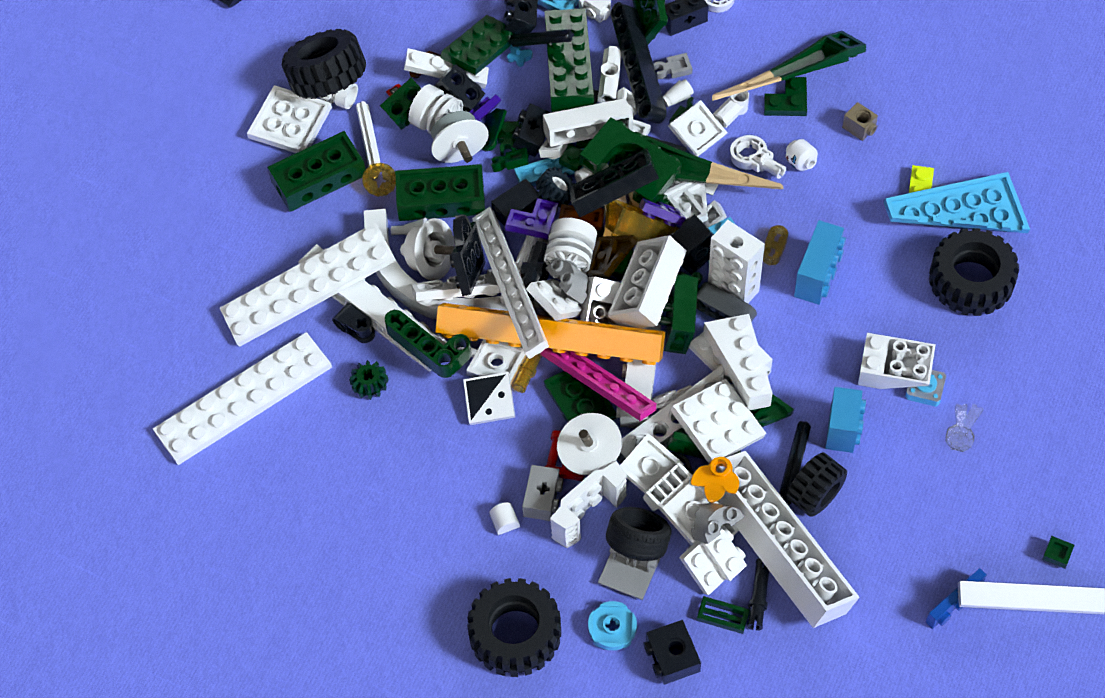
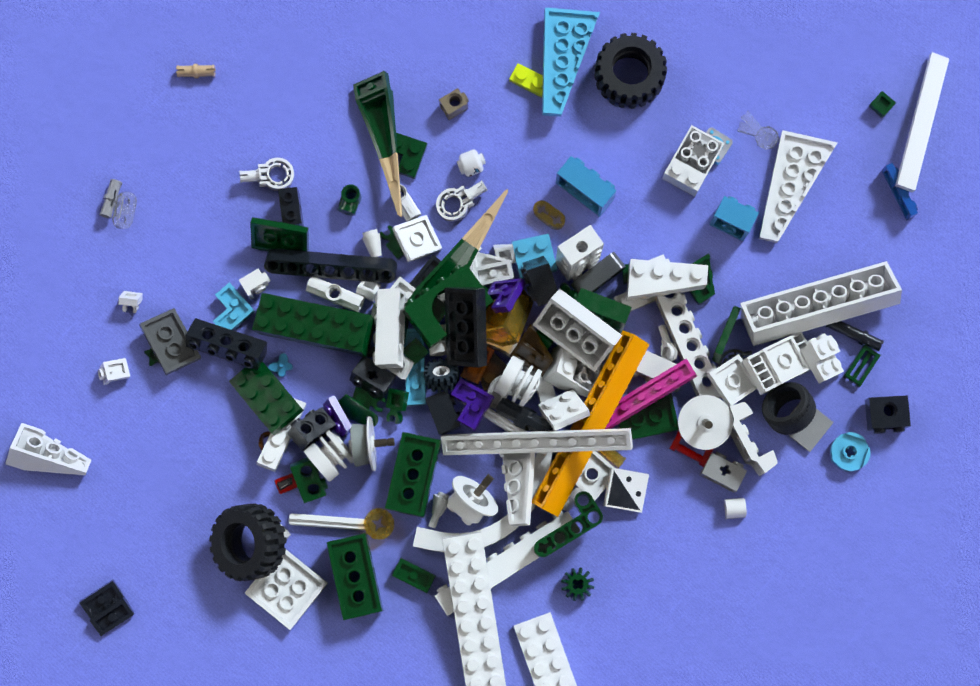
camera: 75 degrees left, 20 degrees up
(334, 225) = (413, 575): none -> dark green plate
(354, 323) = (515, 585): black piece -> none
(467, 254) = (502, 470): black plate -> none
(507, 598) = (862, 527): black tyre -> none
(539, 38) = (288, 341): black axle -> none
(572, 279) = (550, 389): light grey cylinder -> none
(675, 65) = (343, 233): light grey plate -> none
(711, 518) = (803, 348): light grey cylinder -> none
(715, 482) = (773, 335): light orange plate -> none
(717, 60) = (346, 205): none -> dark green piece
(718, 421) = (712, 315): white plate -> none
(795, 458) = (751, 269): black axle -> none
(817, 484) = (786, 258): black tyre -> none
(930, 477) = (794, 172): none -> white wing

